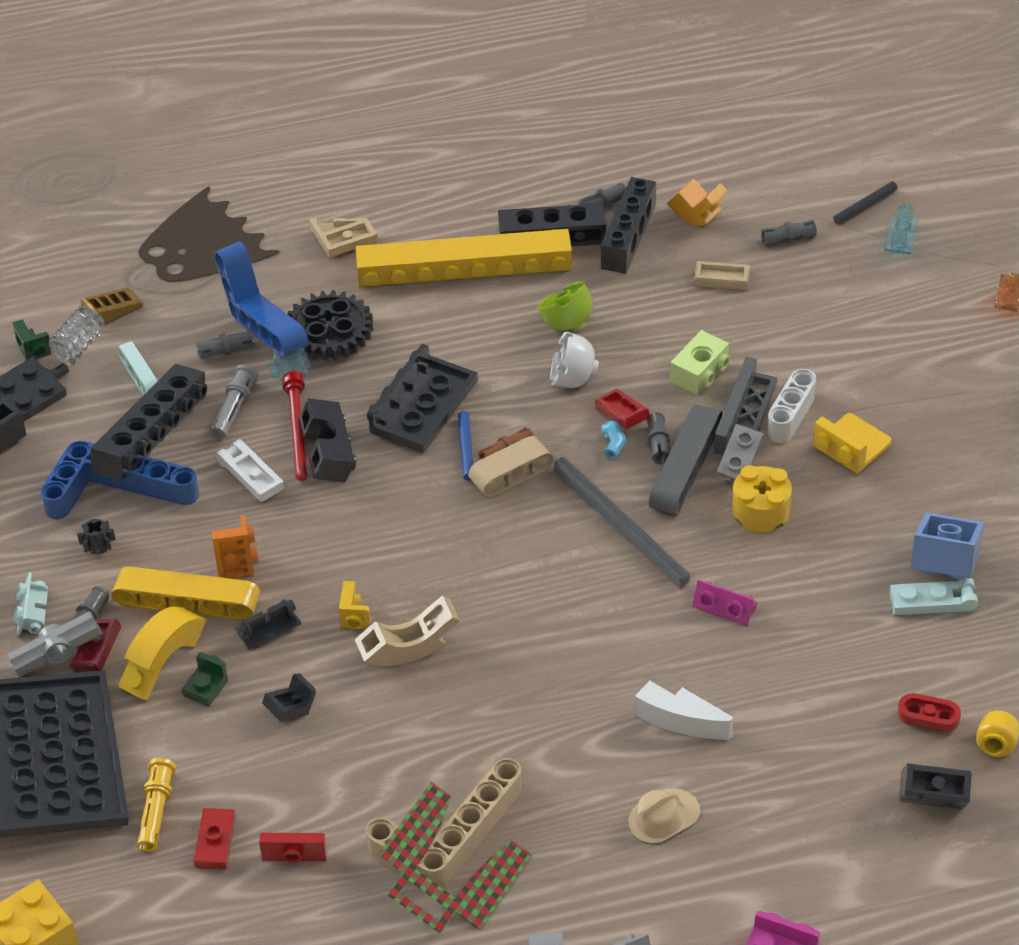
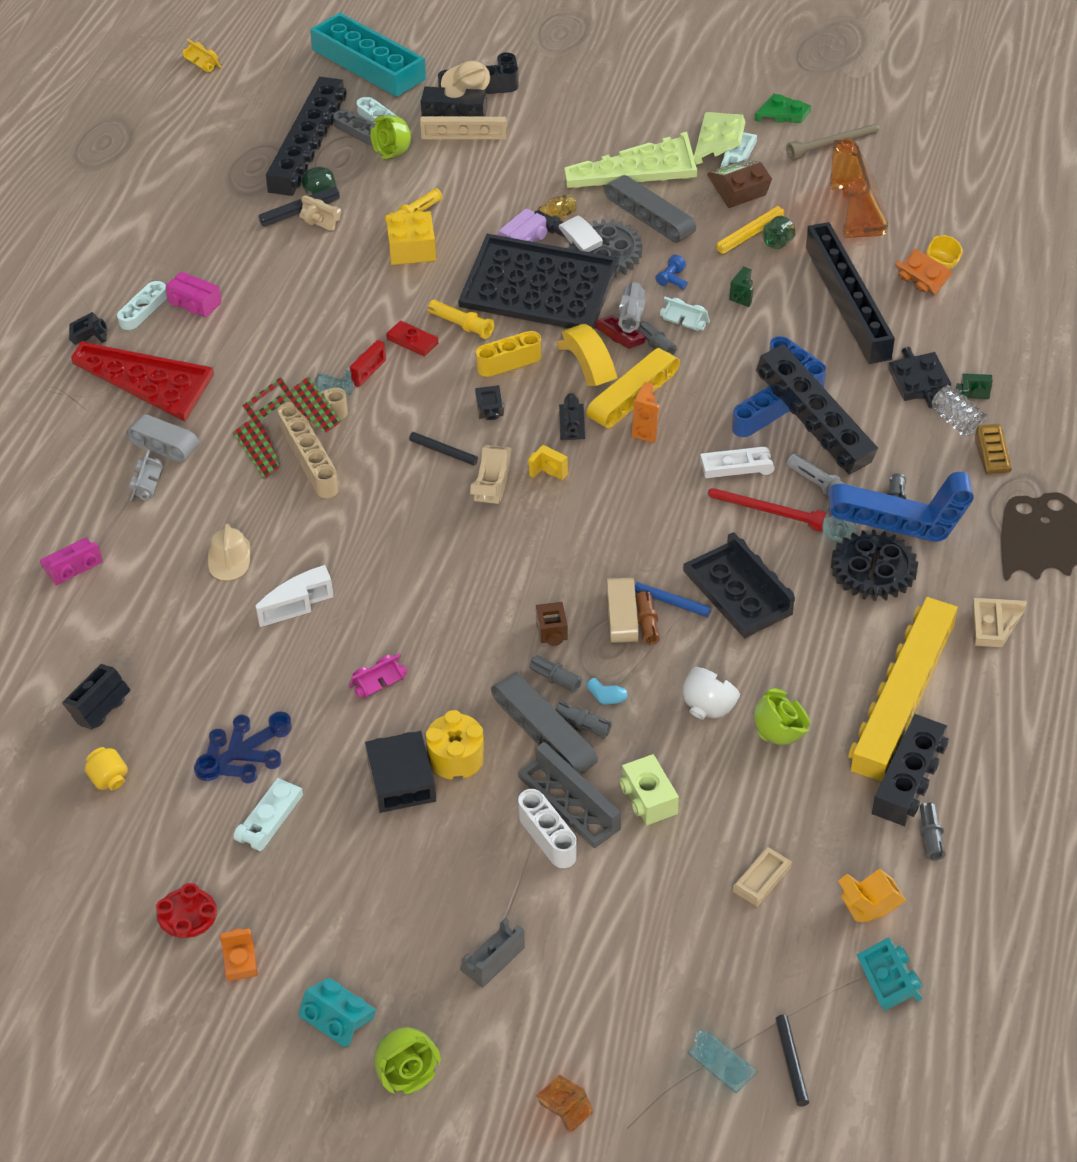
camera: 120 degrees right, 0 degrees up
(96, 536) = (725, 361): black gear -> none
(136, 366) = (903, 431): light aqua beam -> none
(195, 724) = (508, 353): none -> yellow beam
(206, 680) = (546, 375): dark green bracket -> none
(332, 452) = (750, 516): black arch -> none
(352, 856) = (326, 382): none -> clear light blue bracket
(380, 712) = (443, 448): none -> black bar
(567, 503) = (552, 629): none -> reddish brown brick
(620, 479) = (555, 673): none -> dark grey axle
(622, 408) = (633, 709): red plate -> none
(622, 522) = (512, 655): dark grey axle -> none
(628, 225) = (873, 826): black brick -> none
(739, 452) = (513, 752): light grey hinge -> none
(755, 174) = (889, 974): none -> teal bracket
(788, 232) = (786, 961): dark grey pin -> none
(816, 525) = (400, 771): none -> black brick
(850, 441) = (472, 846): yellow bracket -> none
(918, 665) = (211, 766): none -> clear blue plant
(929, 712) = (164, 742): red plate -> none
(932, 383) = (494, 954): none -> dark grey hinge
(947, 545) = (294, 832): medium blue brick -> none

